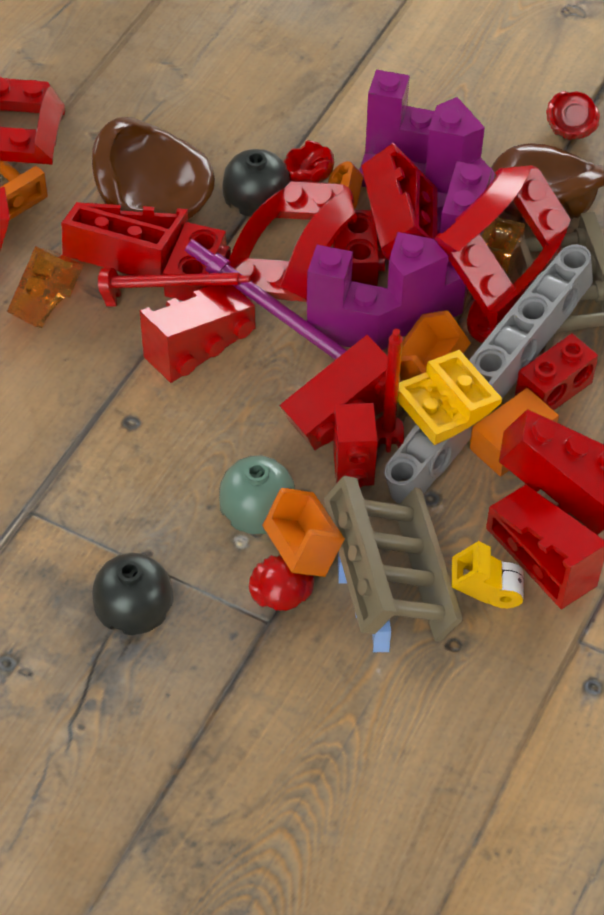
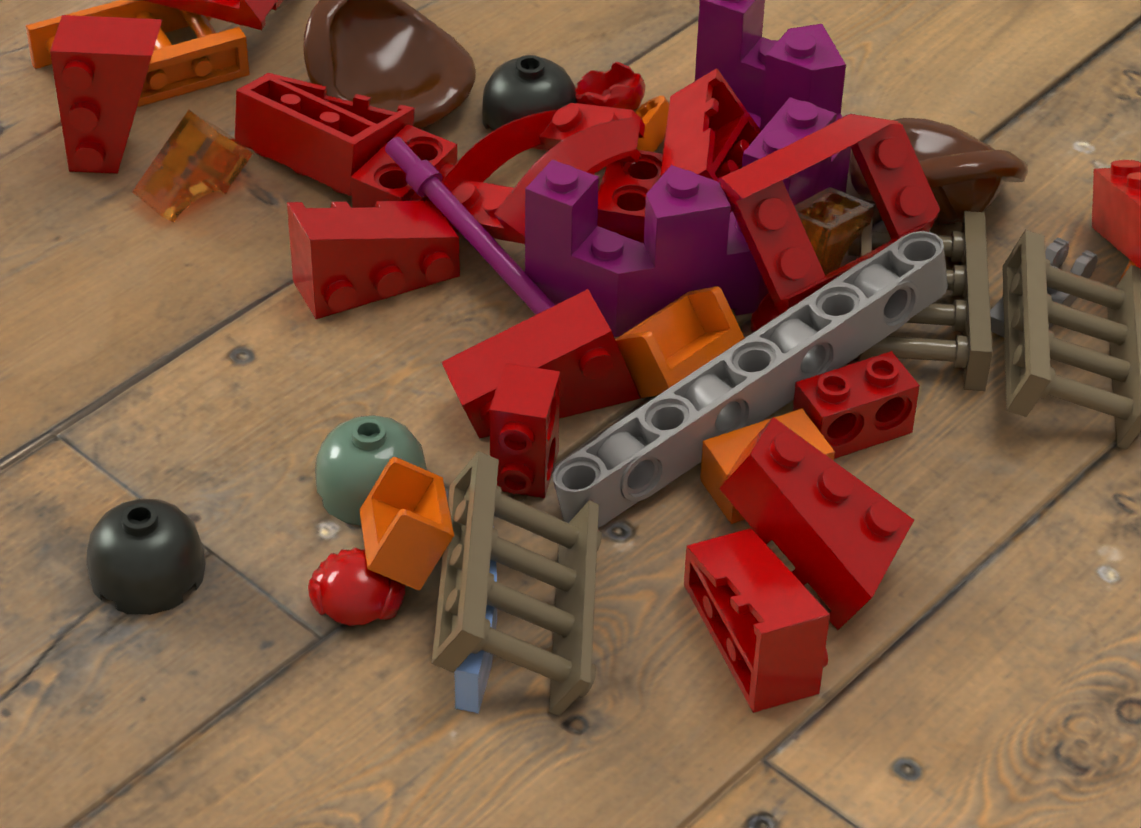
camera: 15 degrees right, 10 degrees down
(110, 282) = (279, 178): red piece -> none
(389, 427) = (591, 422): red piece -> none
(447, 397) = (673, 392): yellow slope -> none
(489, 578) = (651, 638): yellow leg -> none
(572, 115) = (1003, 98): red hair -> none

